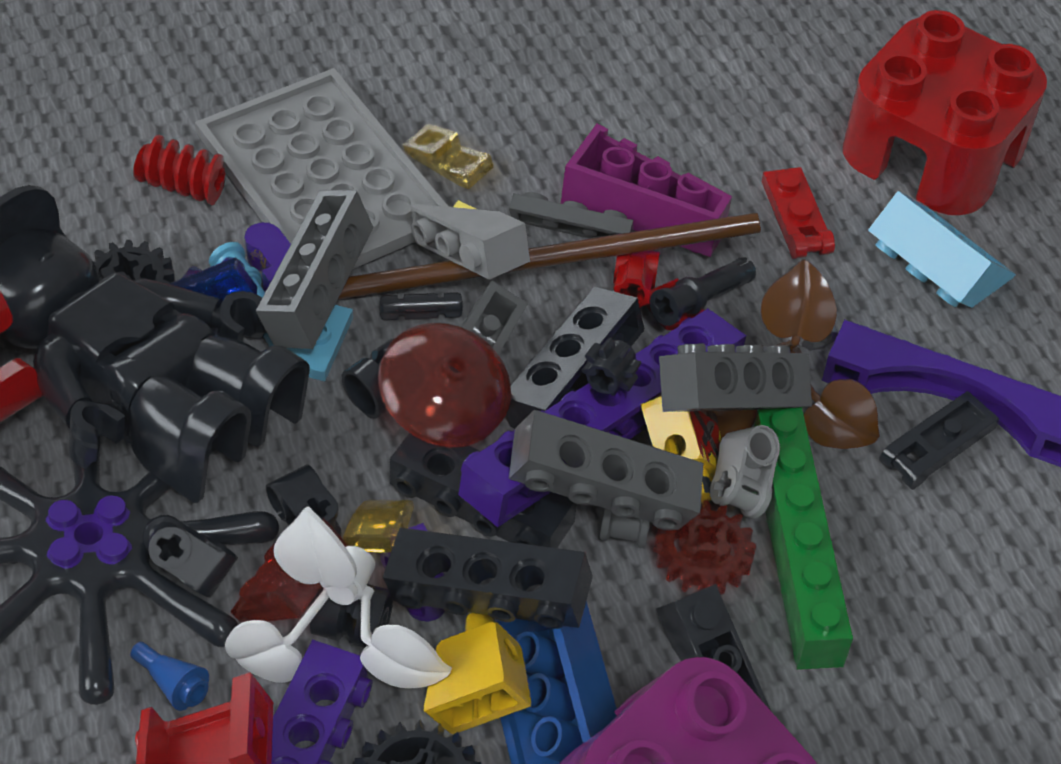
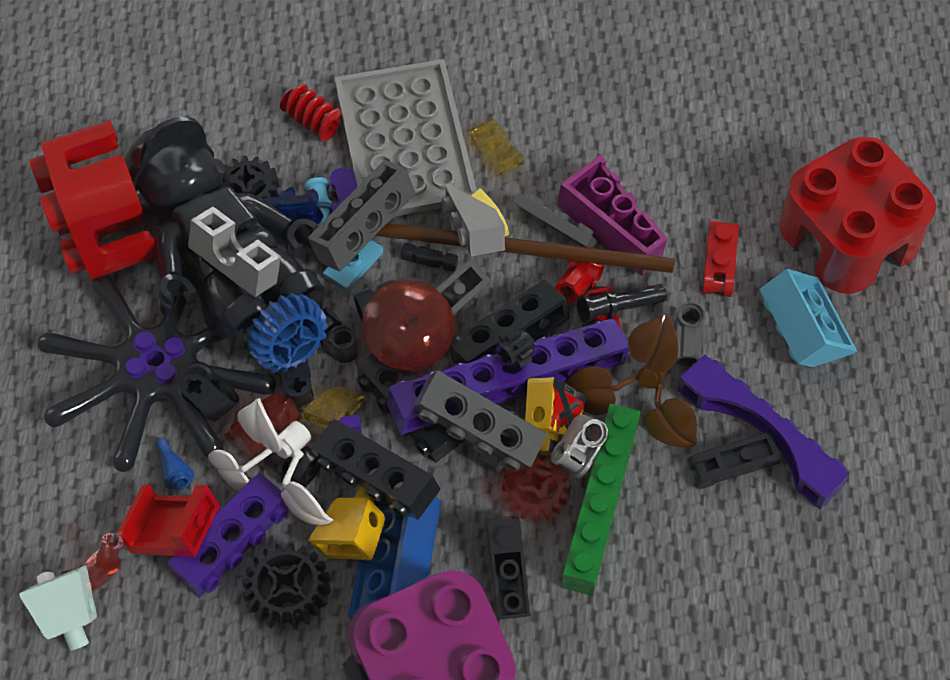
camera: 25 degrees right, 10 degrees up
(135, 336) = (215, 241): none -> light grey arch
(280, 436) = (287, 332): none -> blue gear
(334, 436) = (336, 334): none -> black piece
(734, 379) = (593, 382): dark grey brick -> none

